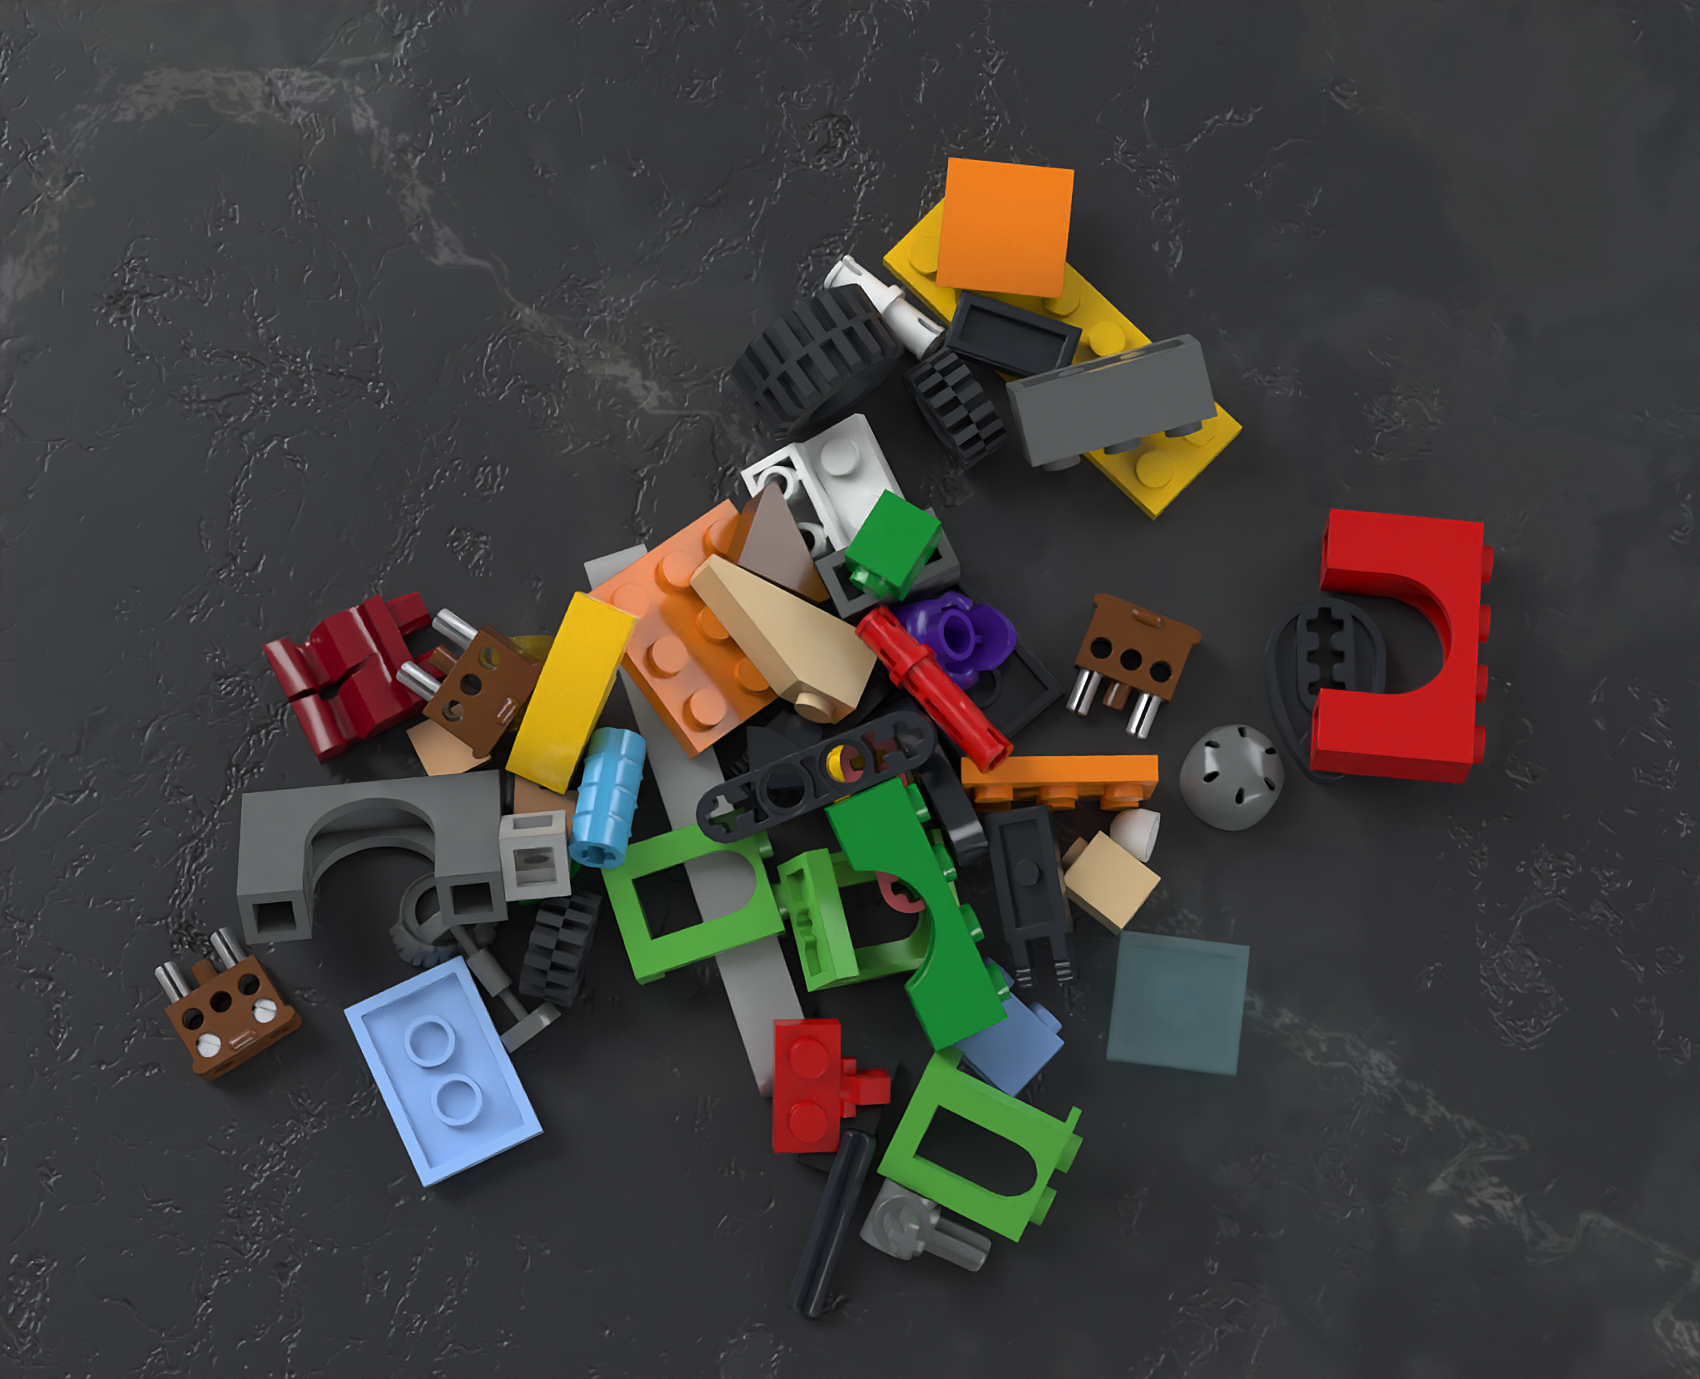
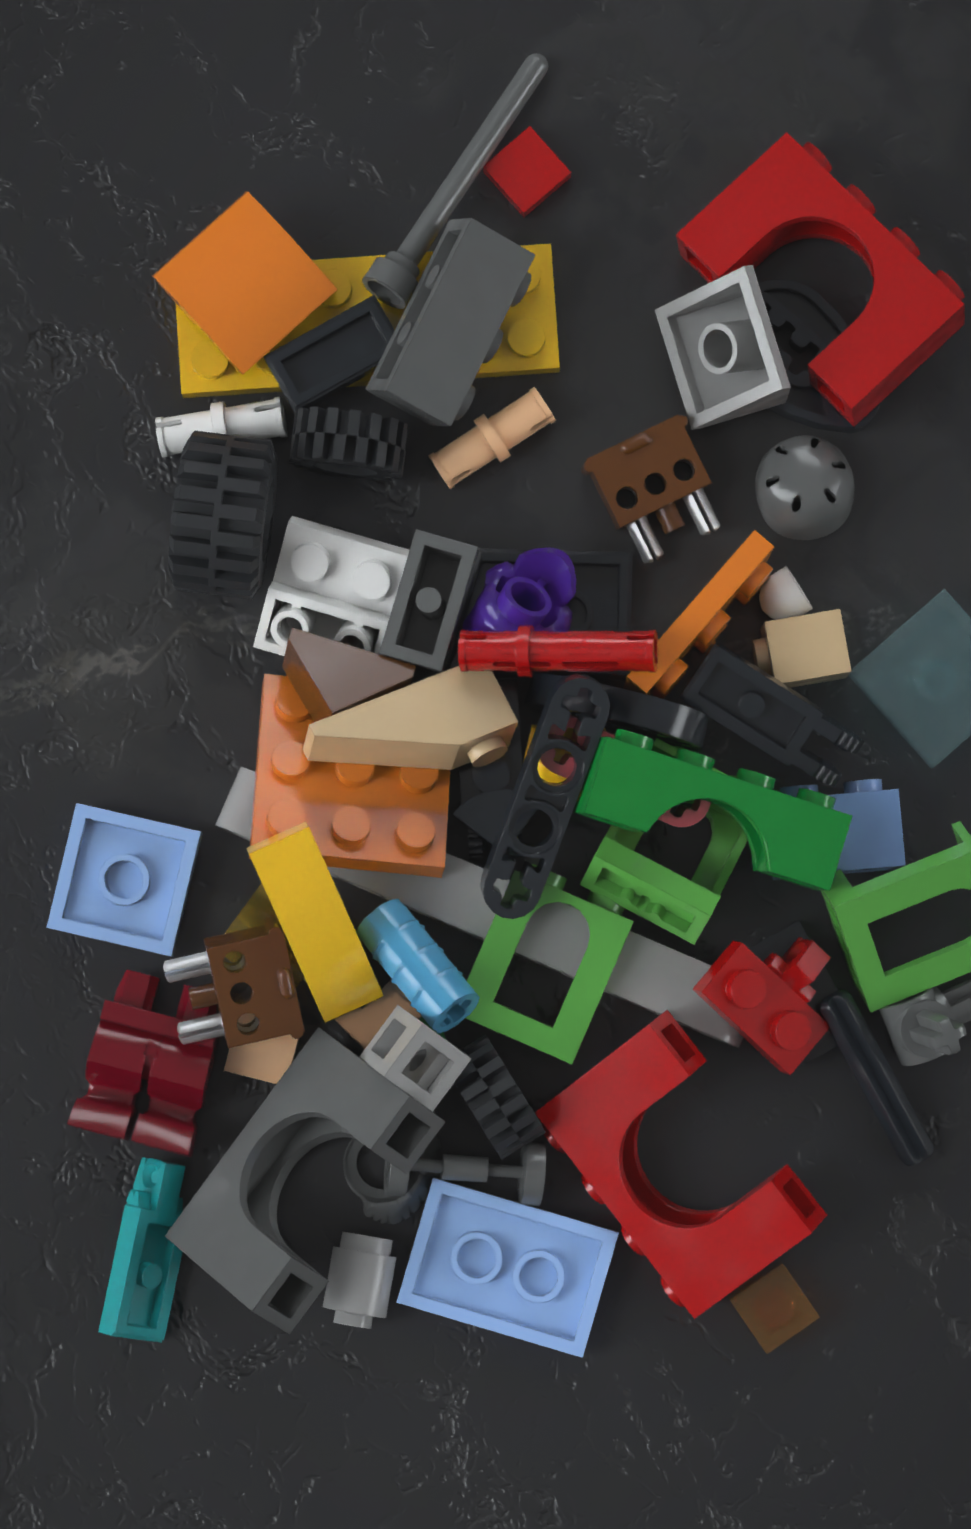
camera: 45 degrees left, 5 degrees up
(211, 796) = (144, 1259): none -> teal hinge
(243, 1029) = (343, 1385): reddish brown piece -> none
(337, 968) = (360, 1279): none -> light grey brick
(484, 533) = (124, 880): none -> light blue plate
(588, 1300) = (774, 1308): none -> clear orange plate
(607, 1046) = (694, 1251): none -> red arch
(892, 547) = (424, 587): green brick -> none
(1056, 512) = (492, 438): none -> light nougat pin
(1112, 331) = (395, 275): none -> dark grey piece
(1275, 620) = (724, 350): none -> light grey slope
(1280, 363) = (526, 171): none -> red tile

